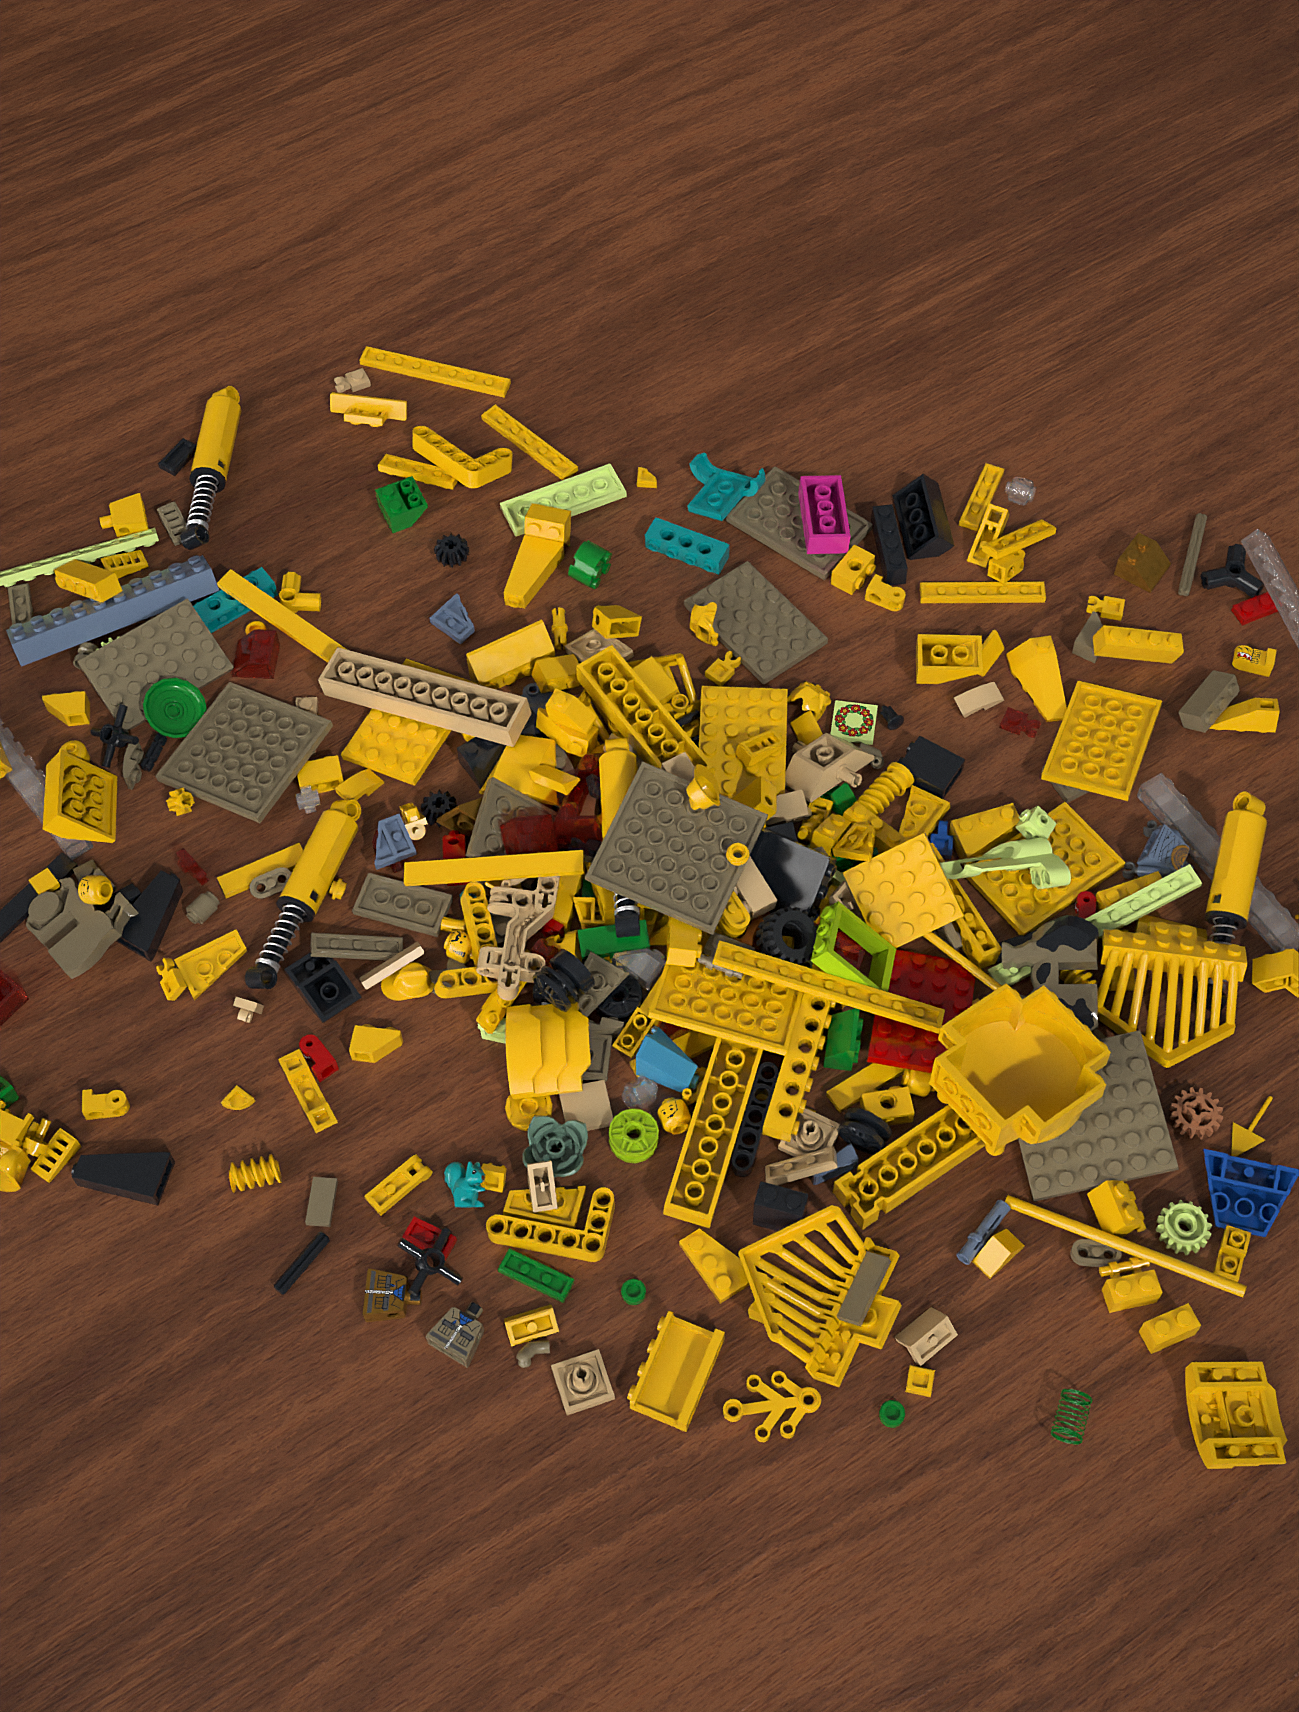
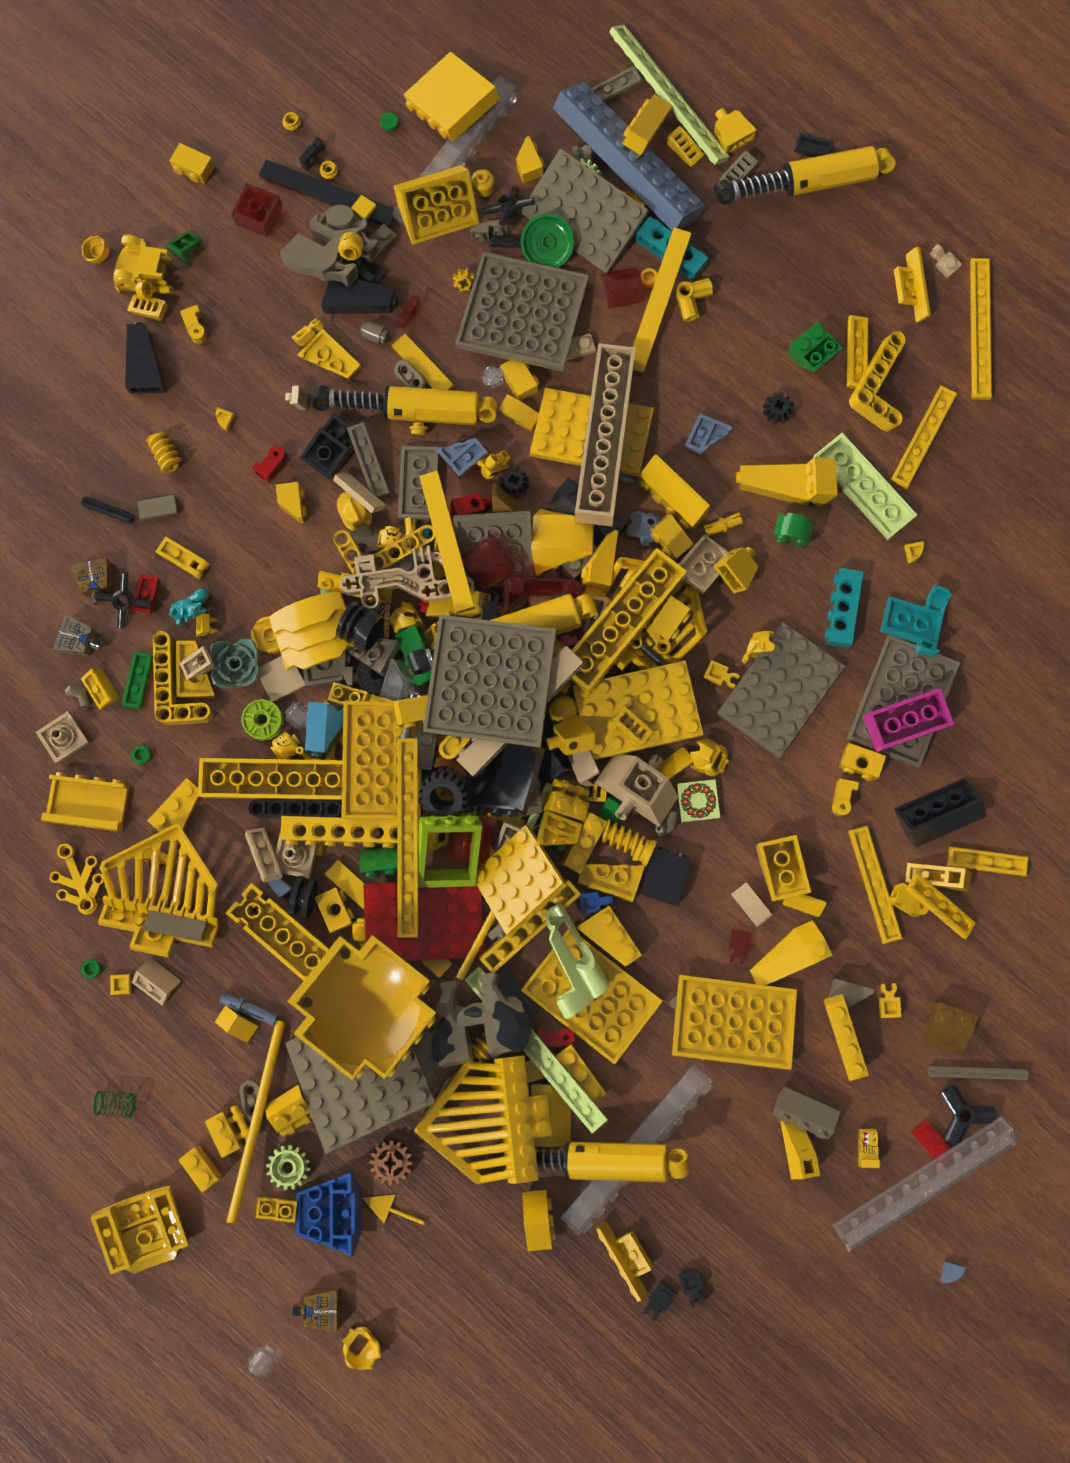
camera: 80 degrees right, 20 degrees up
(307, 1091) = (239, 469): yellow slope -> none
(546, 951) = (390, 604): clear red wheel -> none
(554, 778) = (546, 563): yellow slope -> none
(570, 712) = (610, 557): yellow slope -> none
(703, 789) = (541, 687): yellow piece -> none
(740, 848) = (486, 731): yellow plate -> none
(778, 1206) = (220, 846): black brick -> none
(889, 545) = (899, 787): black brick -> none
(894, 721) = (711, 831): black piece -> none
(1020, 490) = (1001, 896): clear head -> none
(1035, 823) = (622, 979): yellowish green brick -> none
(1162, 853) = (630, 1096): sand blue torso -> none

